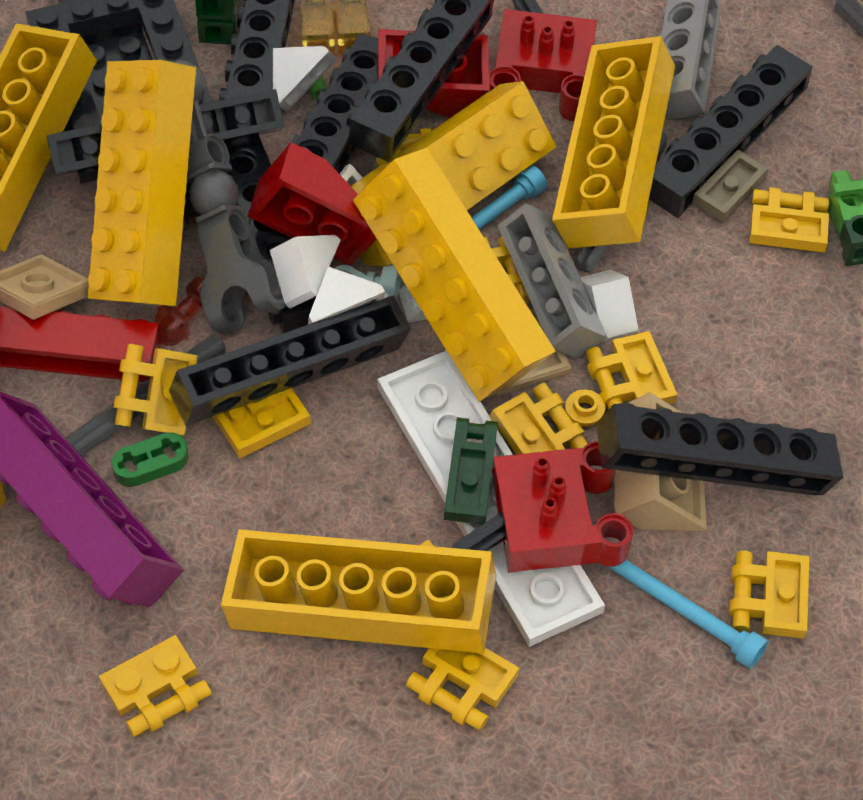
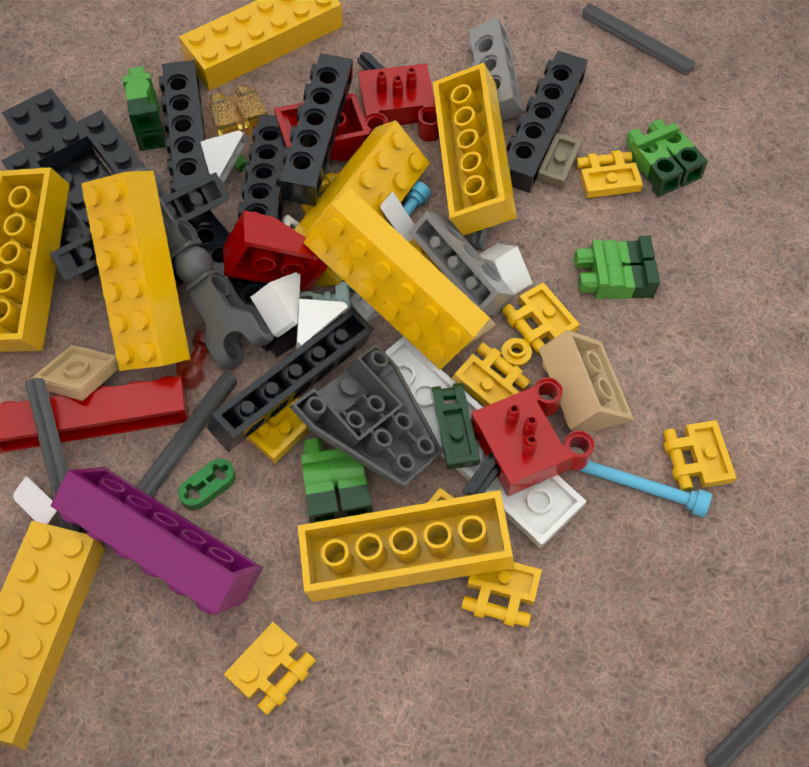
camera: 15 degrees left, 5 degrees up
(159, 407) = (201, 442): yellow plate -> none
(305, 482) = (328, 471): none -> hips
(371, 432) = (372, 418): none -> dark grey wedge
(490, 203) = (397, 216): none -> white sticker
(718, 450) = (628, 360): black brick -> none
(753, 340) = (618, 269): none -> bright green hips

